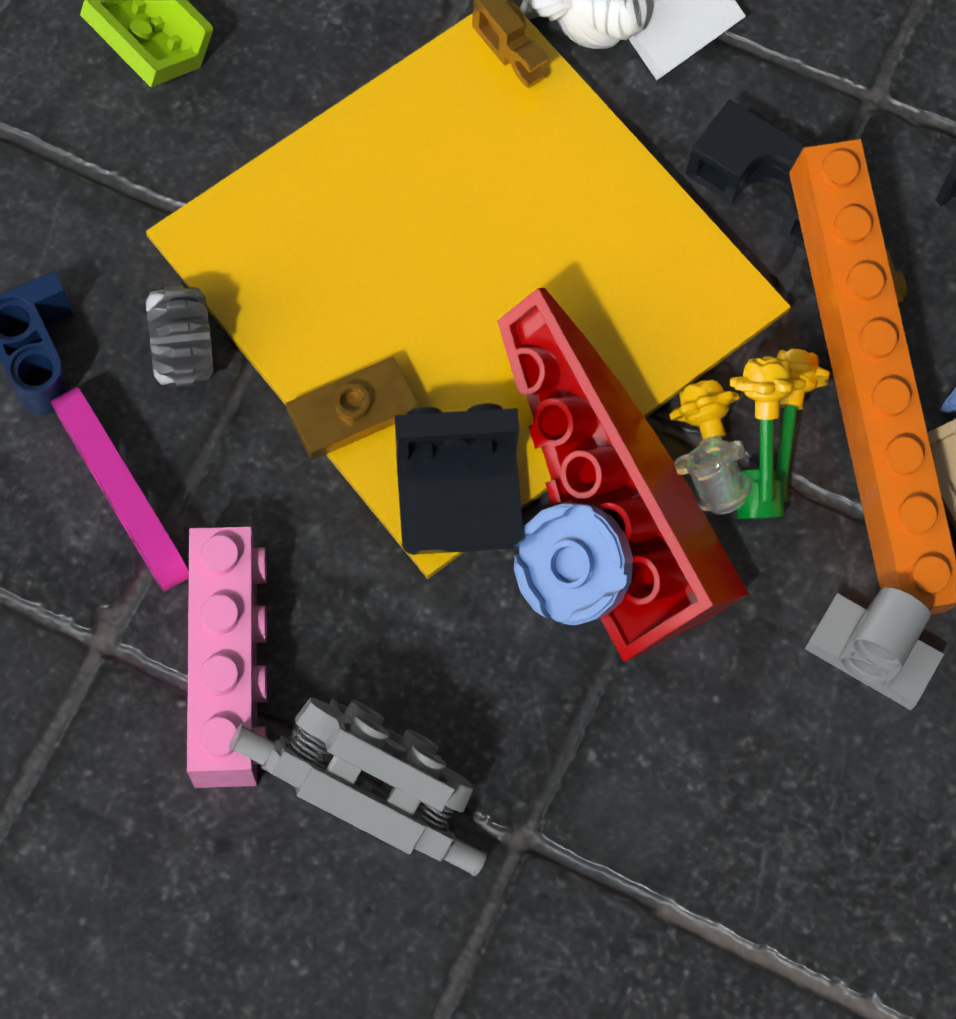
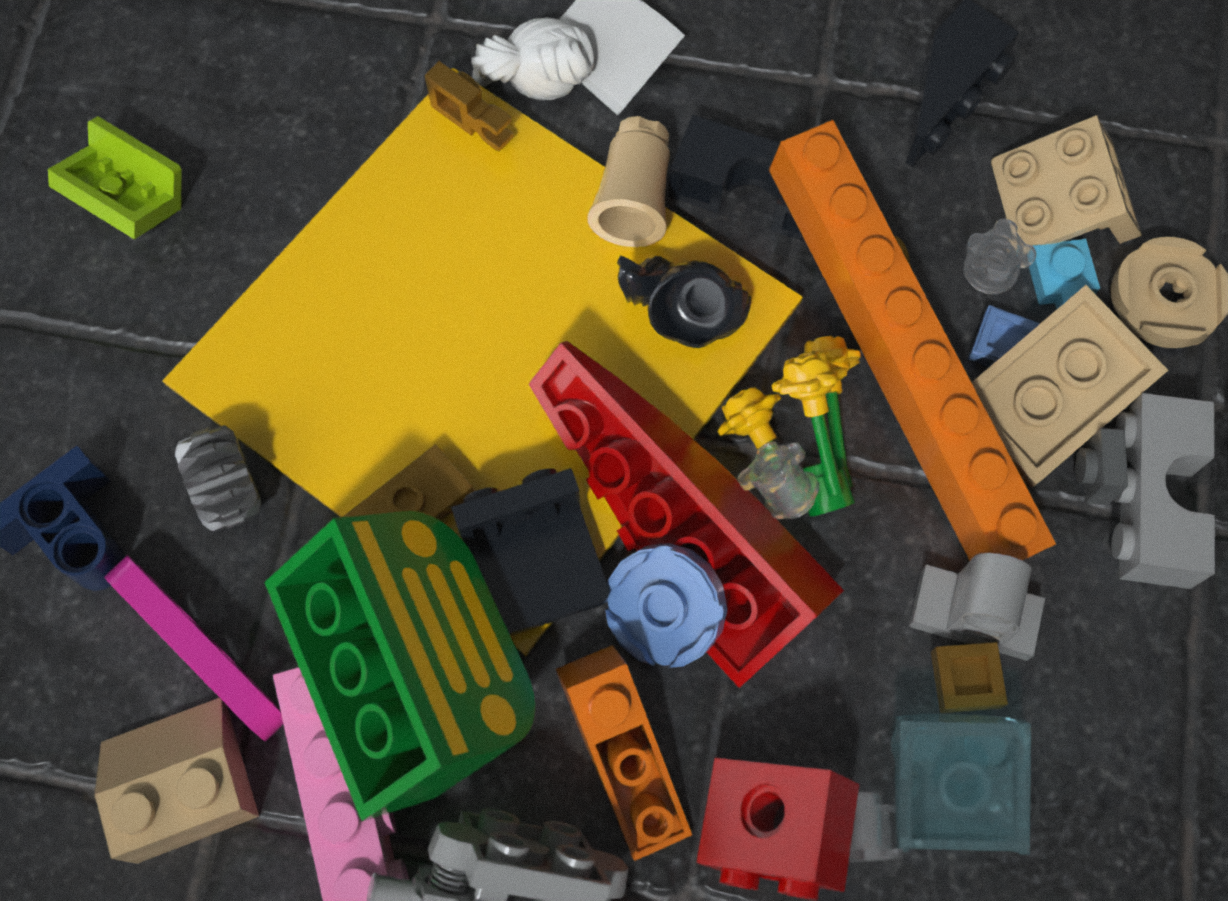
camera: 10 degrees left, 0 degrees up
(71, 607) = (172, 783): none -> tan slope
(314, 538) = (402, 656): none -> green brick
(498, 688) = (624, 751): none -> orange slope
(634, 816) = (803, 851): none -> red brick
(649, 158) = (633, 185): none -> tan plant
(673, 280) = (687, 300): none -> black hair
(706, 819) = (873, 830): none -> clear brick
(810, 800) = (962, 782): none -> clear light blue slope
(847, 708) = (968, 677): none -> pearl gold plate

